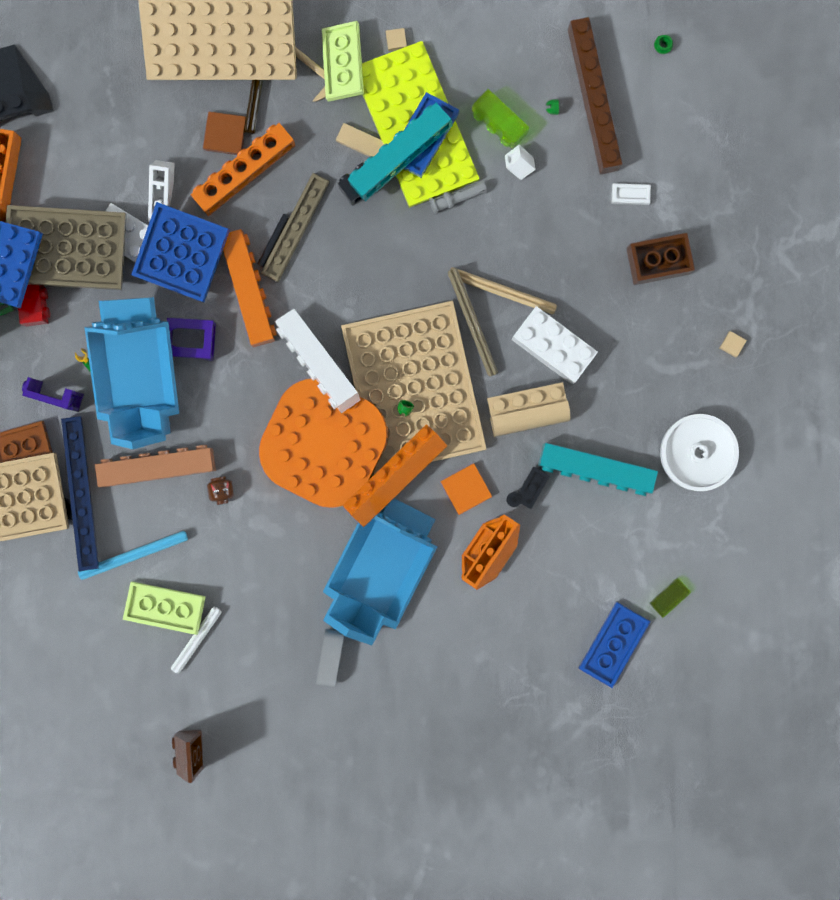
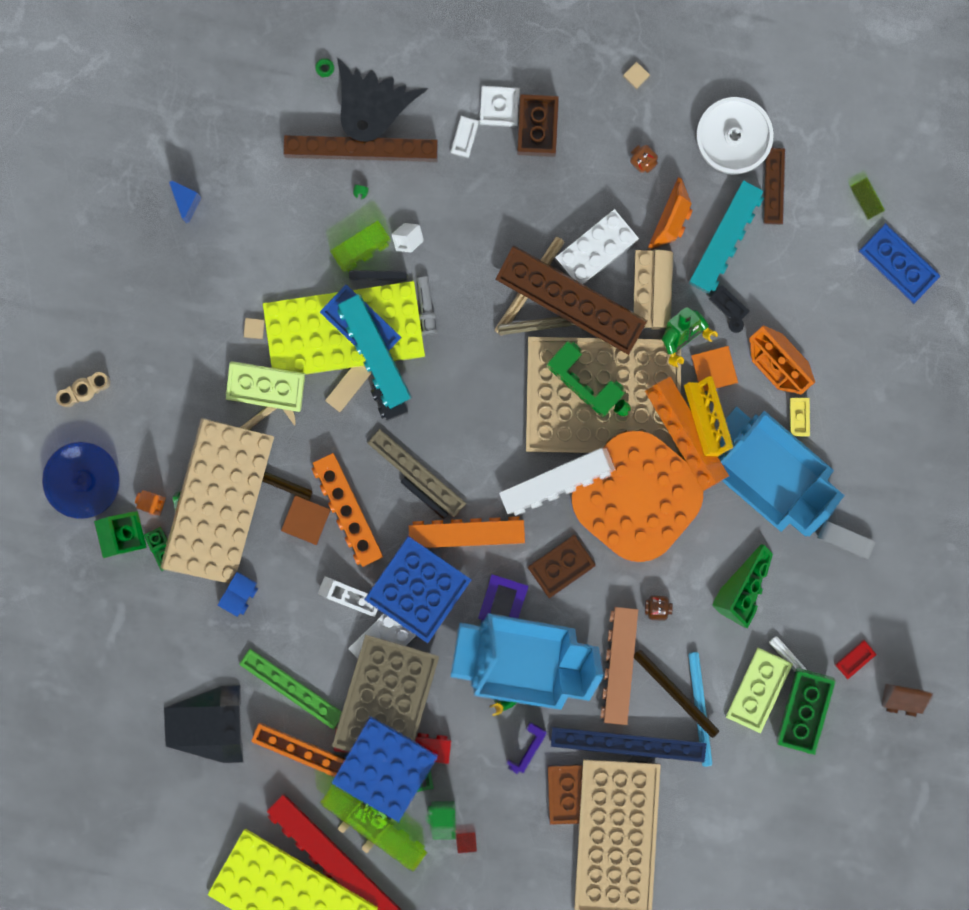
camera: 75 degrees left, 0 degrees up
(61, 157) = (291, 688): none -> bright green tile
(137, 85) = (237, 594): none -> blue brick
(140, 528) = (676, 694): none -> dark brown axle
(152, 658) = (805, 711): none -> green brick
(217, 695) = (855, 659): none -> red tile
(239, 387) = (561, 566): none -> reddish brown tile
(253, 566) = (739, 594): none -> green wedge
(413, 491) = (705, 419): none -> yellow fence
(433, 336) = (563, 361): none -> green plate
(439, 583) = (800, 417): none -> light yellow plate
(476, 142) = (378, 275): none -> black tile
(496, 447) = (682, 330): none -> green torso
(498, 331) = (571, 300): none -> reddish brown plate
(603, 412) = (673, 217): none -> orange wedge
(641, 94) = (371, 102): none -> black piece
(653, 370) = (643, 158): none -> dark orange head
(658, 504) = (774, 187): none -> reddish brown tile
(669, 218) = (499, 106): none -> white tile

